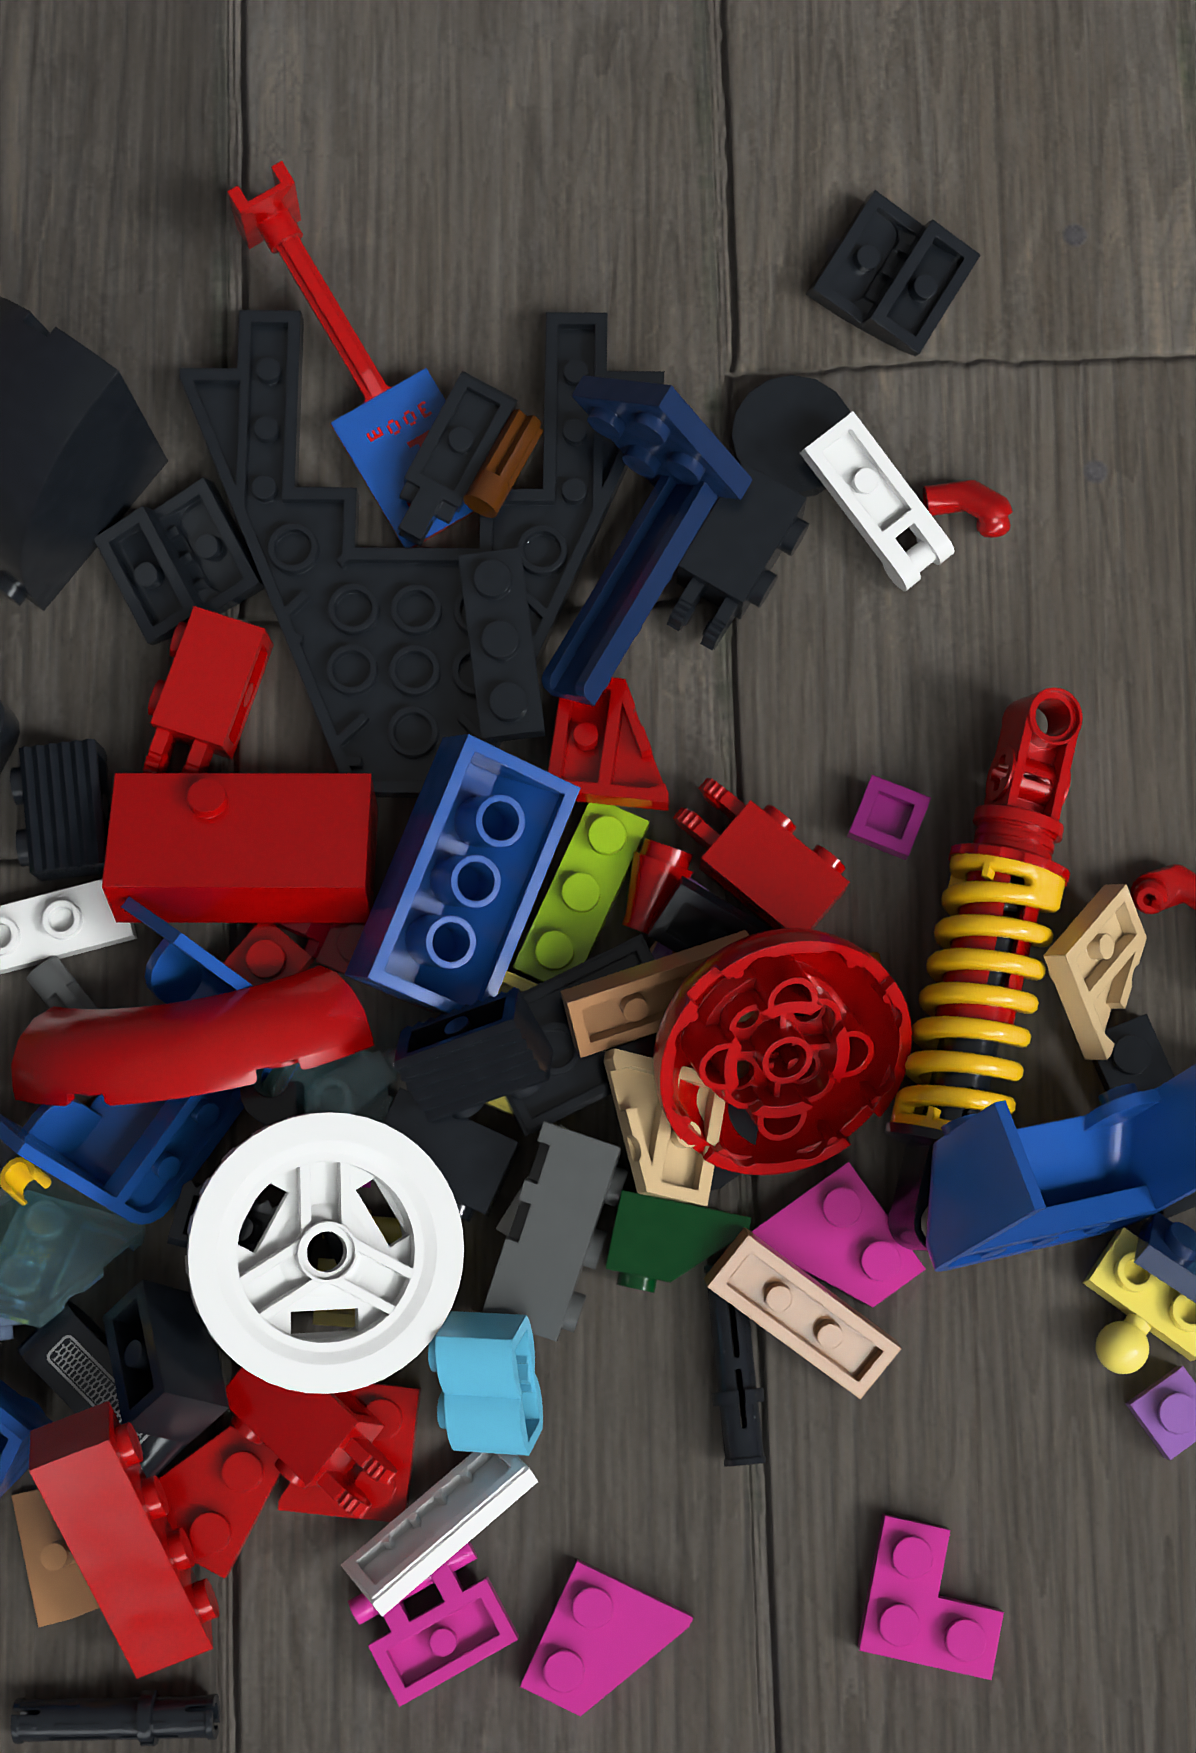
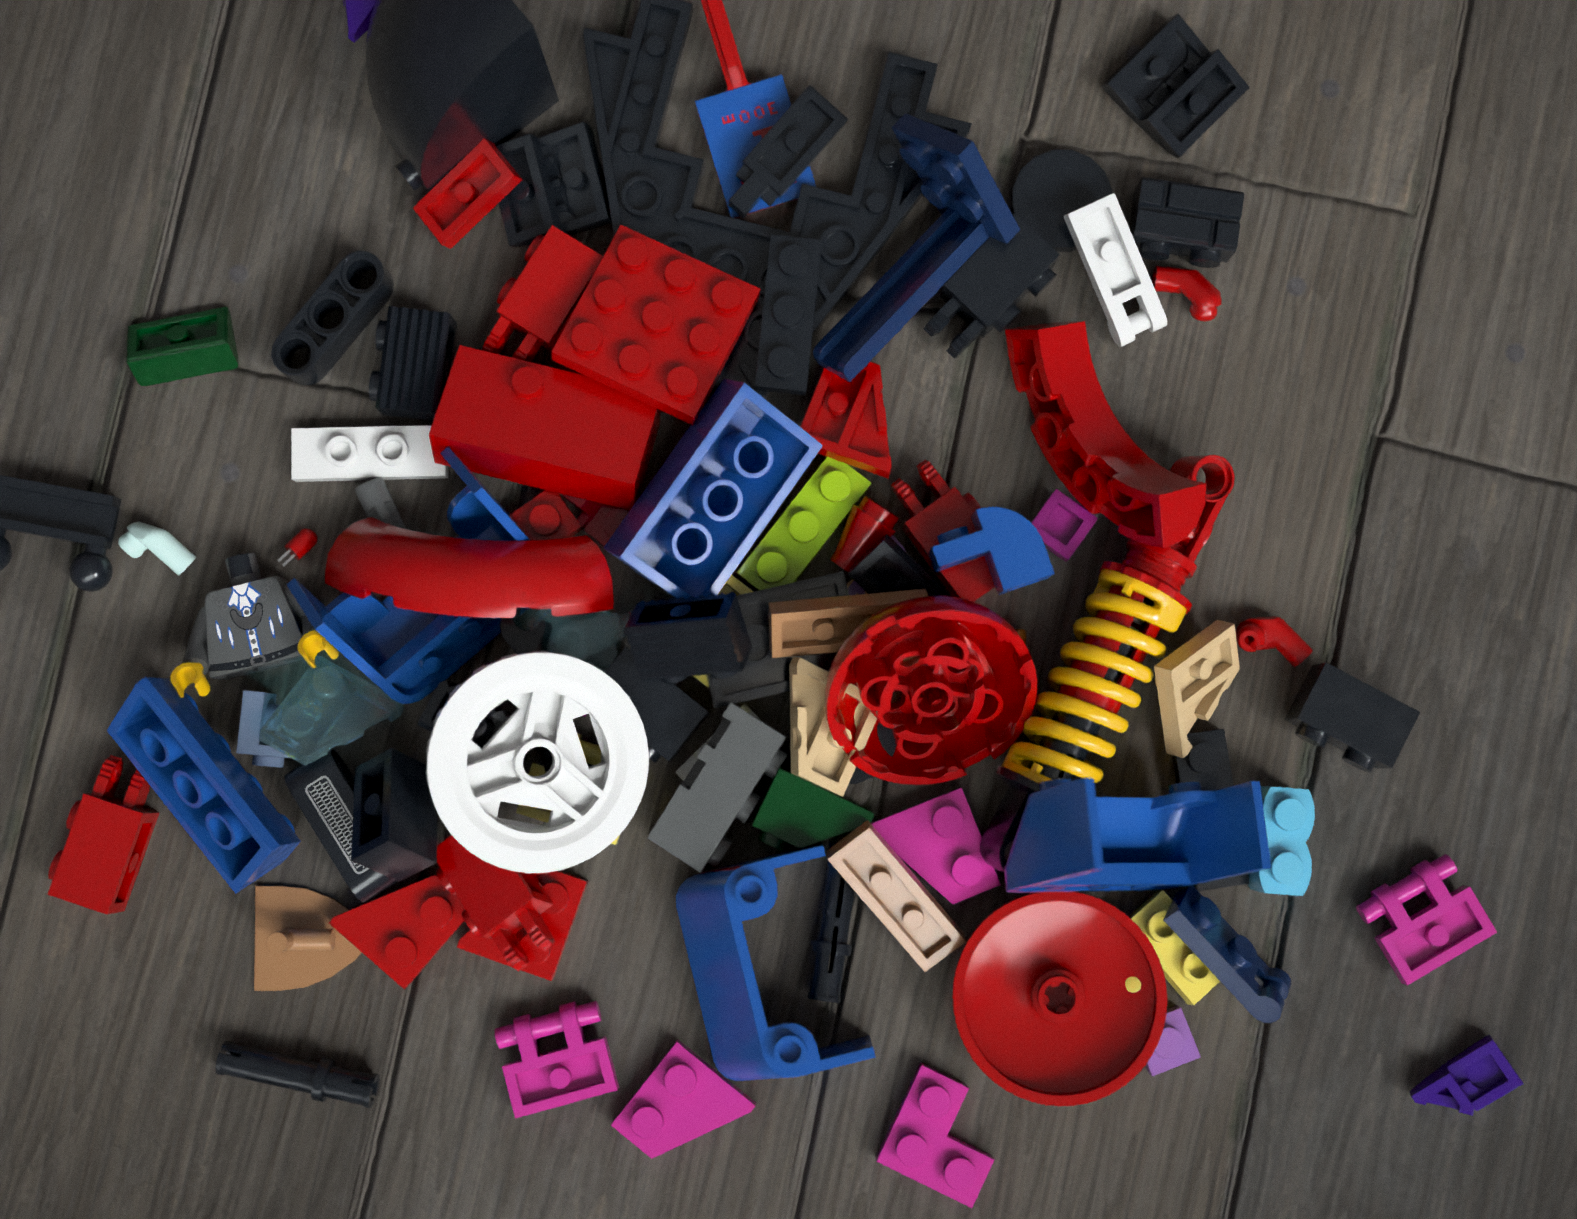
camera: 10 degrees right, 5 degrees up
(83, 594) = (467, 193): none -> red plate
(122, 1538) = (332, 941): red brick -> none
(346, 693) = (656, 324): none -> red plate
(437, 1526) = (577, 988): white plate -> none
(487, 1382) = (640, 890): medium azure brick -> none
(503, 464) = (824, 168): reddish brown piece -> none
(619, 1469) = (711, 922): none -> blue windscreen
(828, 848) = (1007, 541): none -> blue brick
(899, 713) = (1088, 442): none -> red brick
(945, 426) = (1185, 221): none -> black brick
(1017, 1391) = (1049, 1000): none -> red dish

